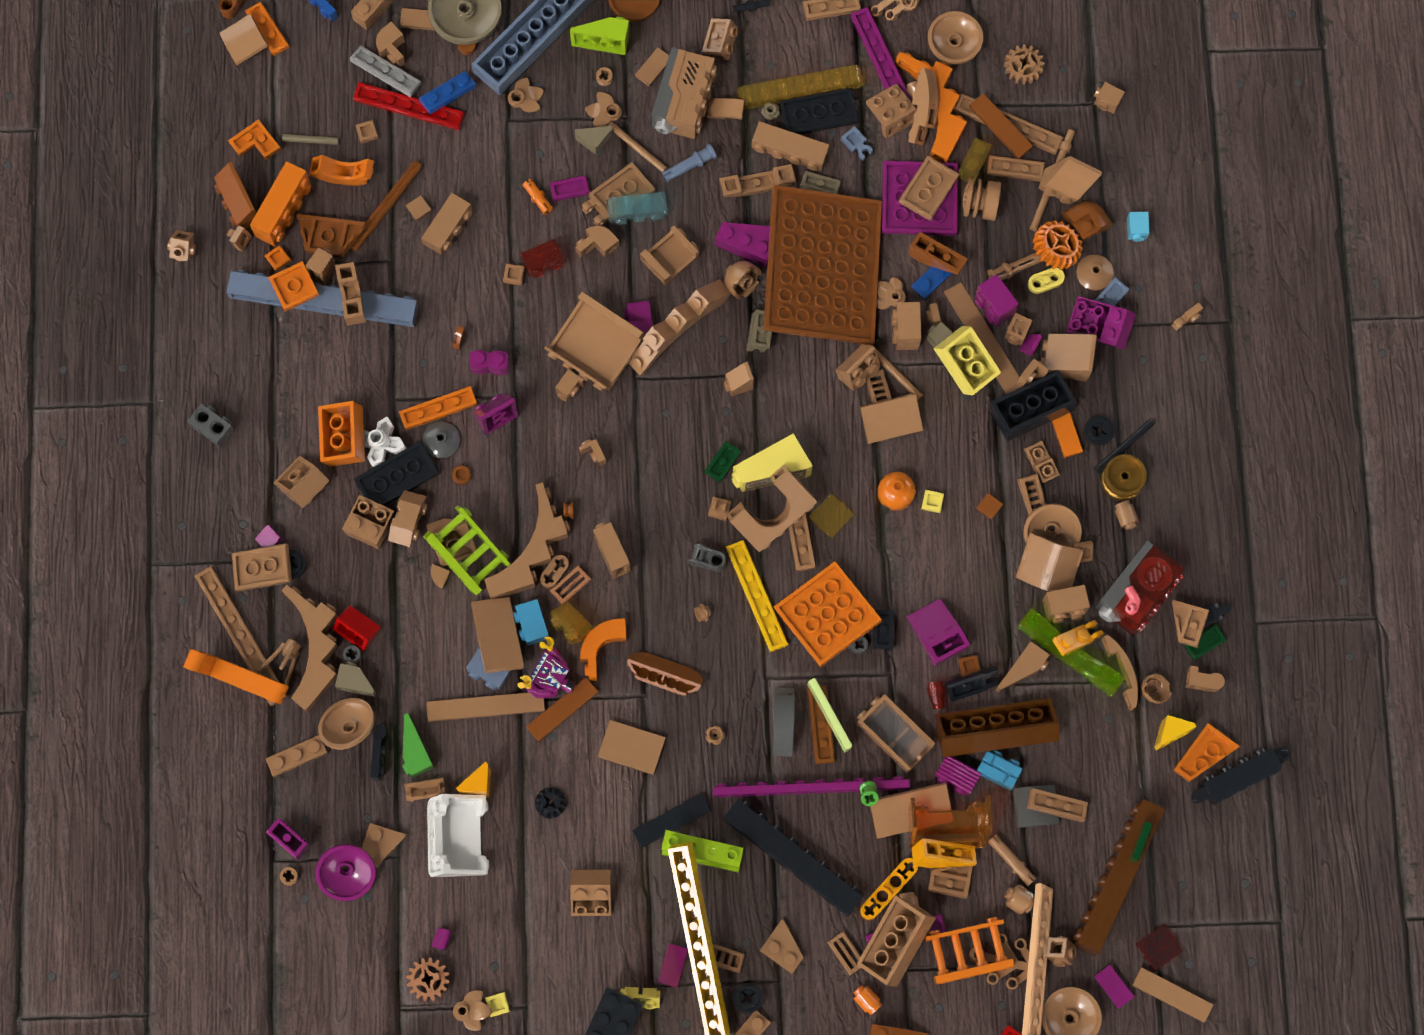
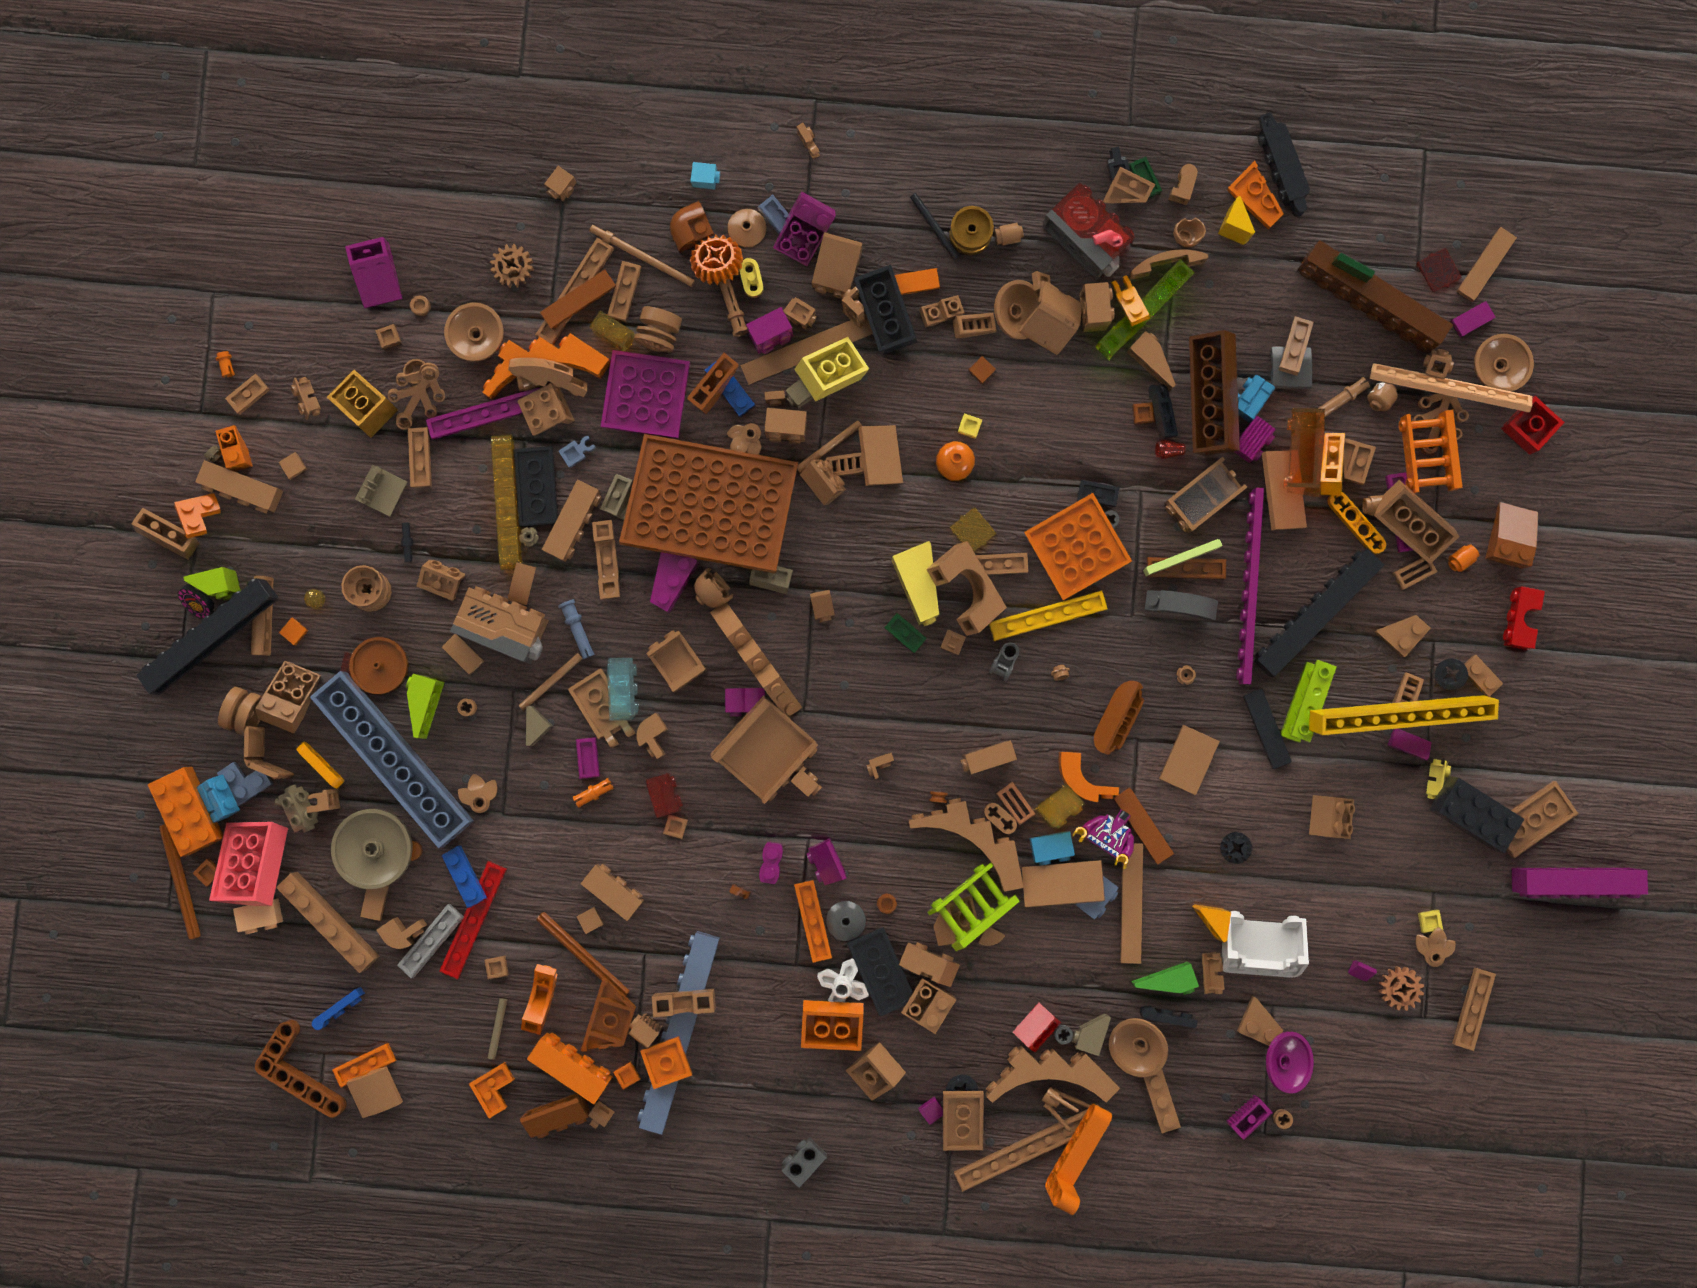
camera: 85 degrees left, 10 degrees up
(181, 245) = (602, 1178): medium nougat brick -> none
(601, 110) = (505, 715): medium nougat plate -> none
(869, 793) = (1271, 528): bright green bush -> none
(928, 188) = (637, 382): medium nougat tile -> none
(938, 632) = (1108, 438): magenta slope -> none
(1030, 344) = (818, 302): magenta slope -> none
(1068, 179) = (650, 237): medium nougat slope -> none
(1107, 429) = (913, 240): black gear -> none

